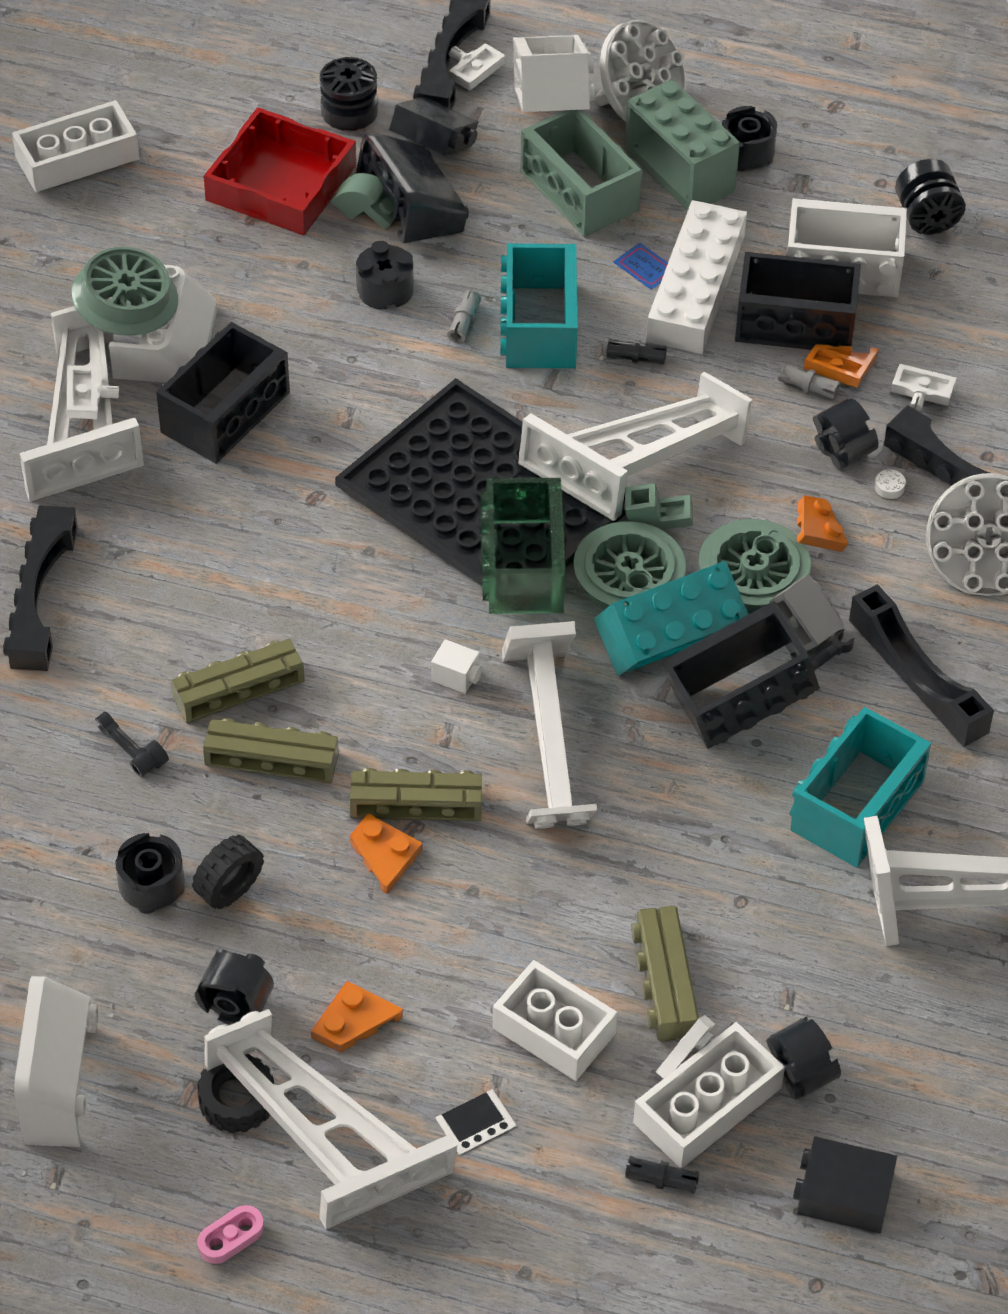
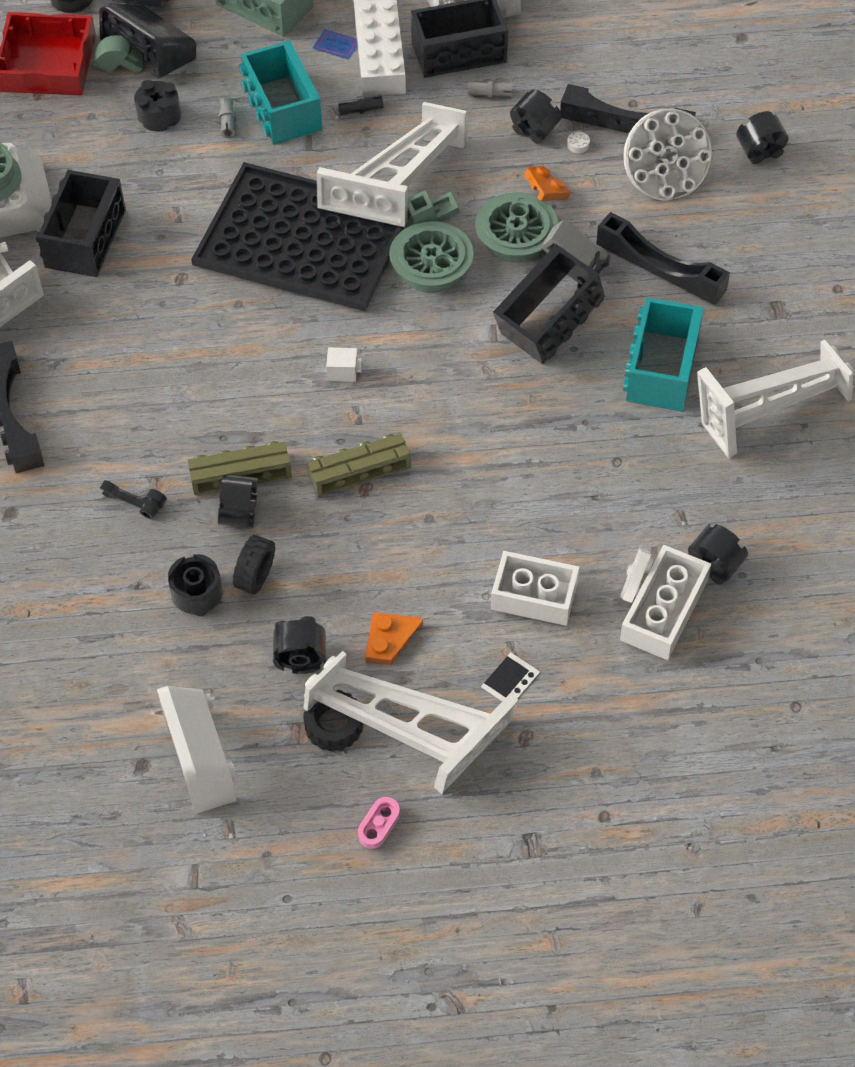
camera: 20 degrees left, 5 degrees up
(237, 680) = (190, 425): olive brick -> none
(245, 789) = (237, 501): none -> black brick
(384, 850) = (353, 511): orange wing -> none
(523, 502) = (345, 230): clear green hose -> none
(539, 646) = (419, 359): white piece -> none
(662, 1174) = (658, 669): black pin -> none
(666, 972) = (593, 528): olive brick -> none
(669, 617) = (482, 280): teal hose -> none
(841, 363) = (505, 70): orange wing -> none
(845, 1184) = (785, 630): black brick -> none
(923, 386) = (568, 68): white plate -> none

